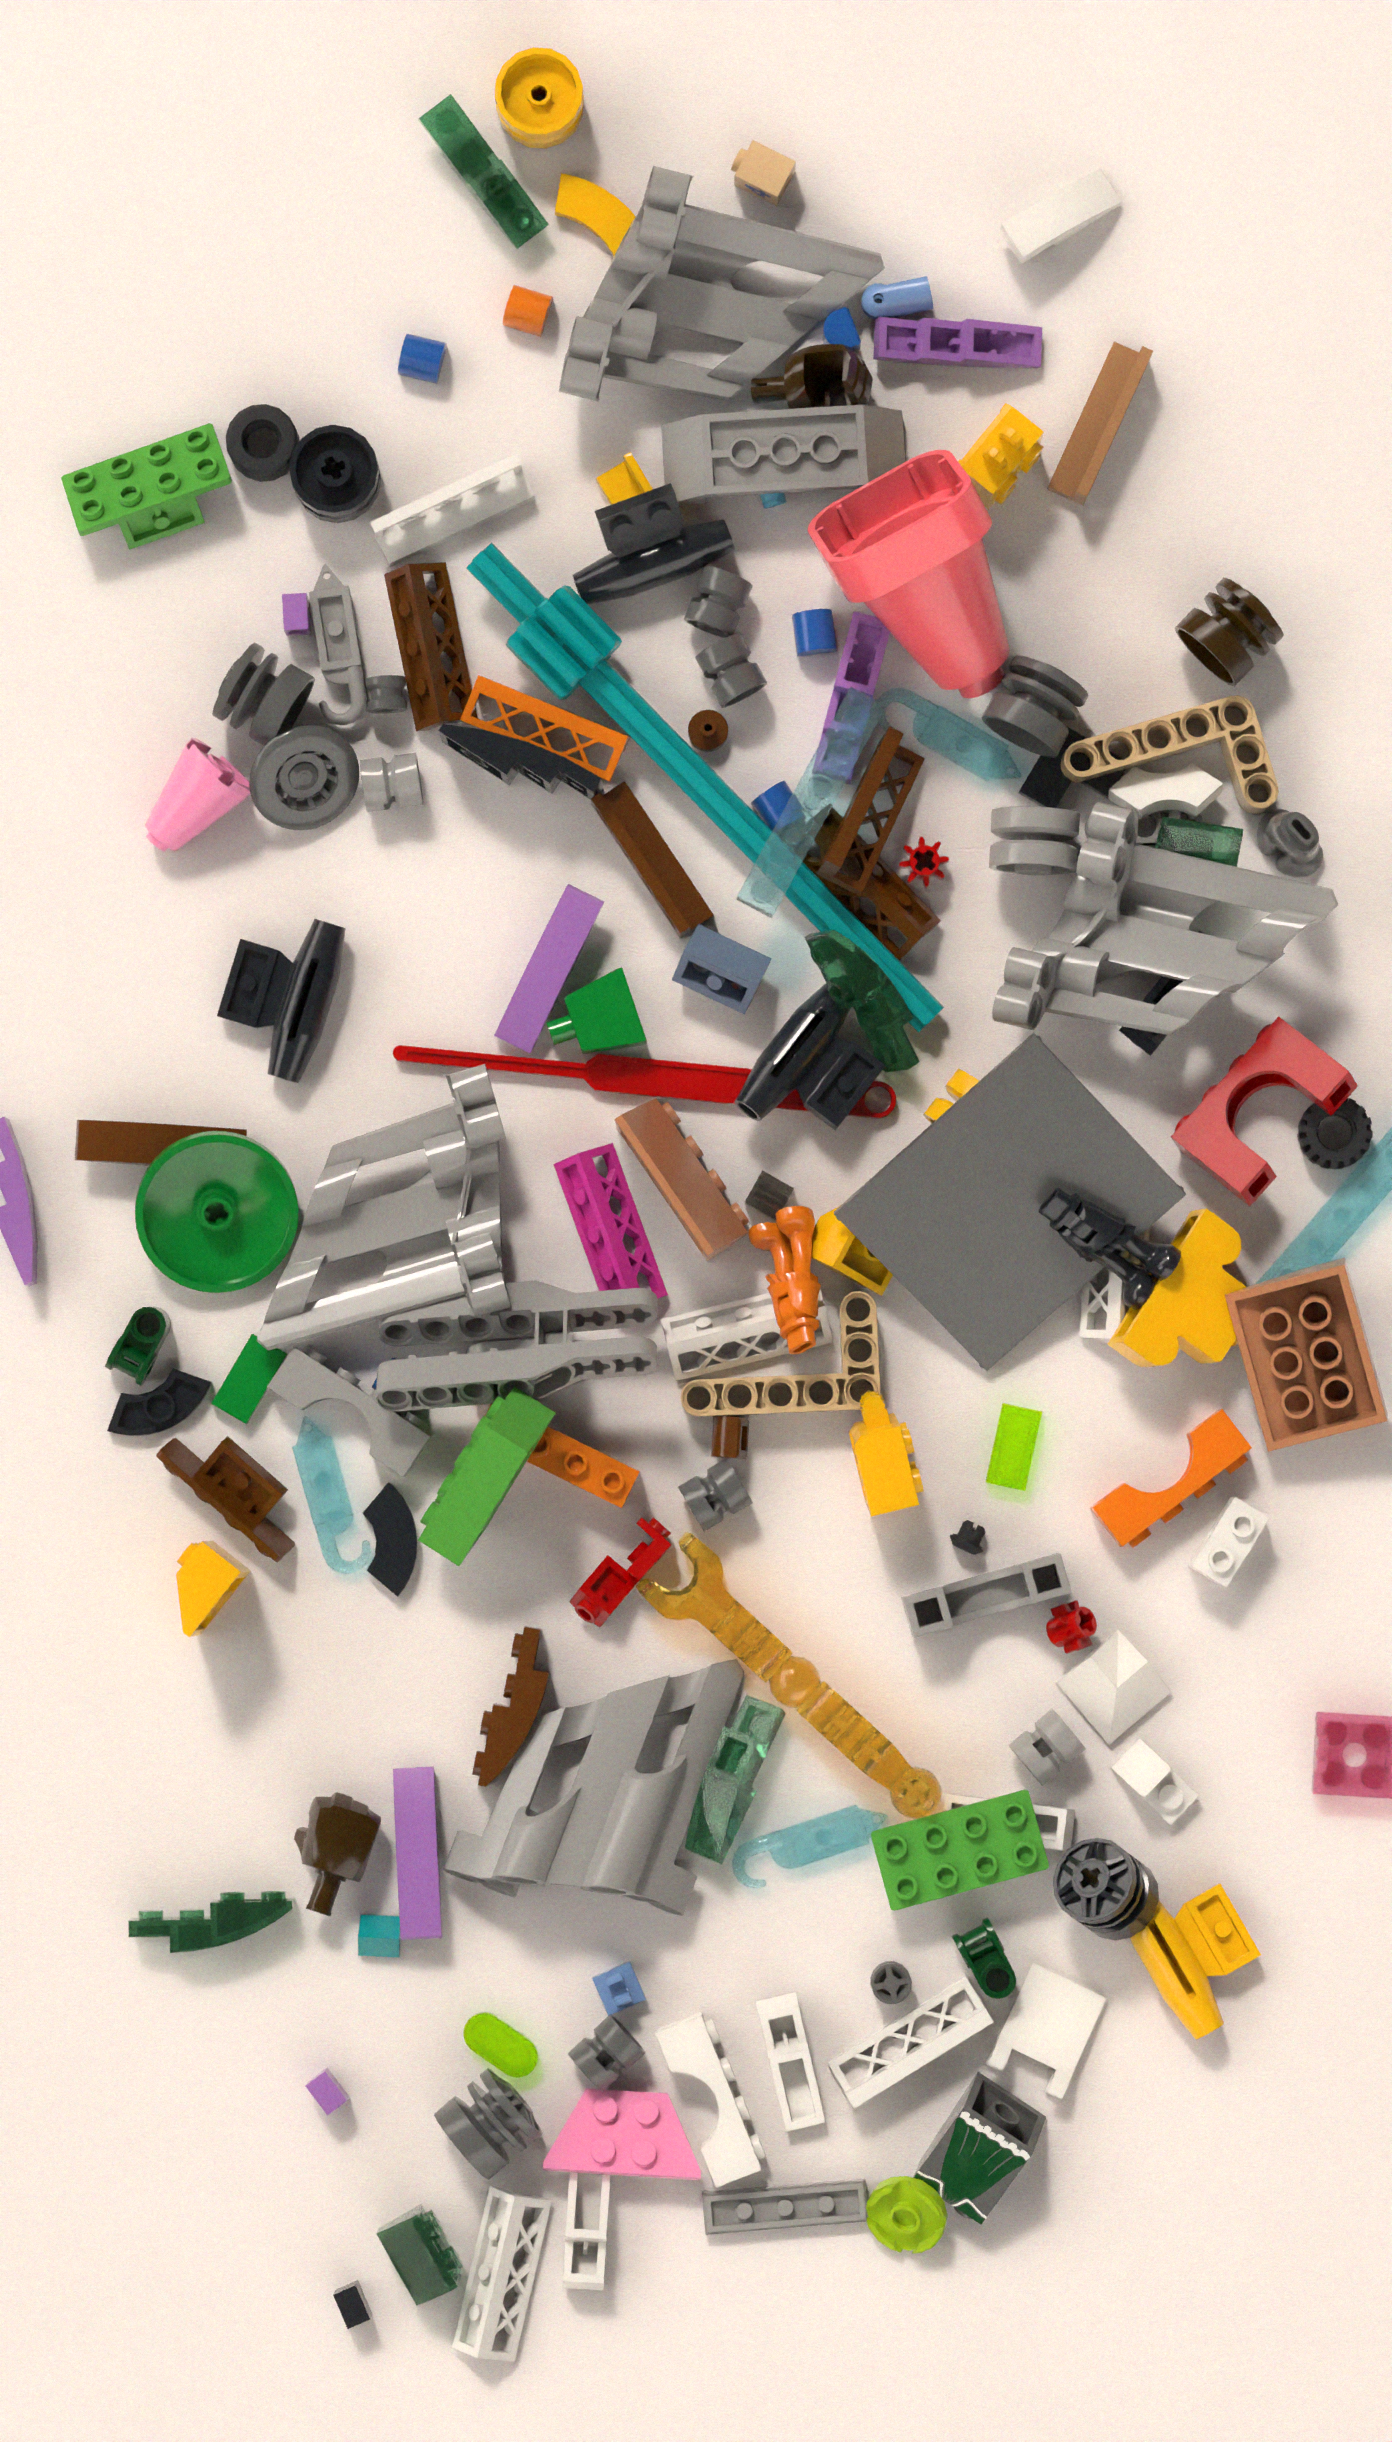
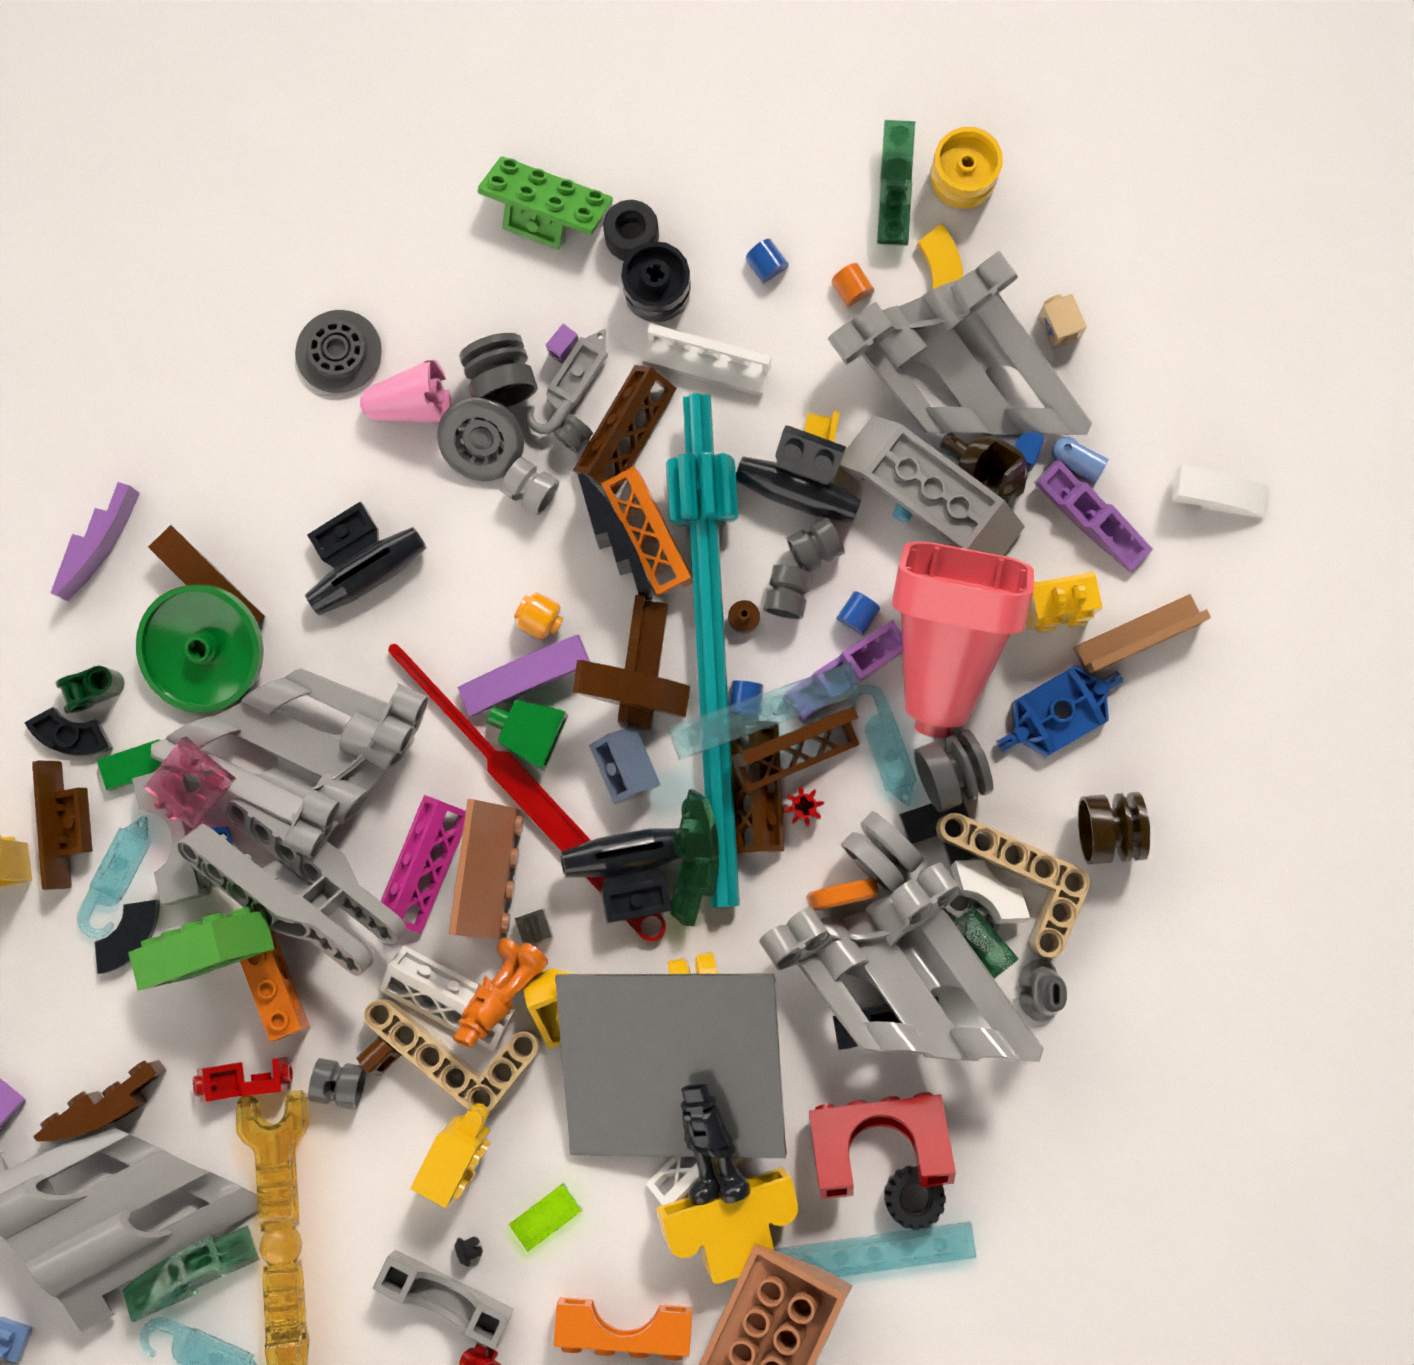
camera: 45 degrees right, 5 degrees down
(78, 811) = (338, 350): none -> dark grey wheel
(340, 1365) = (171, 793): none -> clear pink piece
(512, 900) = (538, 616): none -> light orange head
(668, 890) = (630, 688): none -> reddish brown slope
(1031, 911) = (842, 894): none -> orange wheel
(1079, 594) = (1034, 714): none -> blue plate

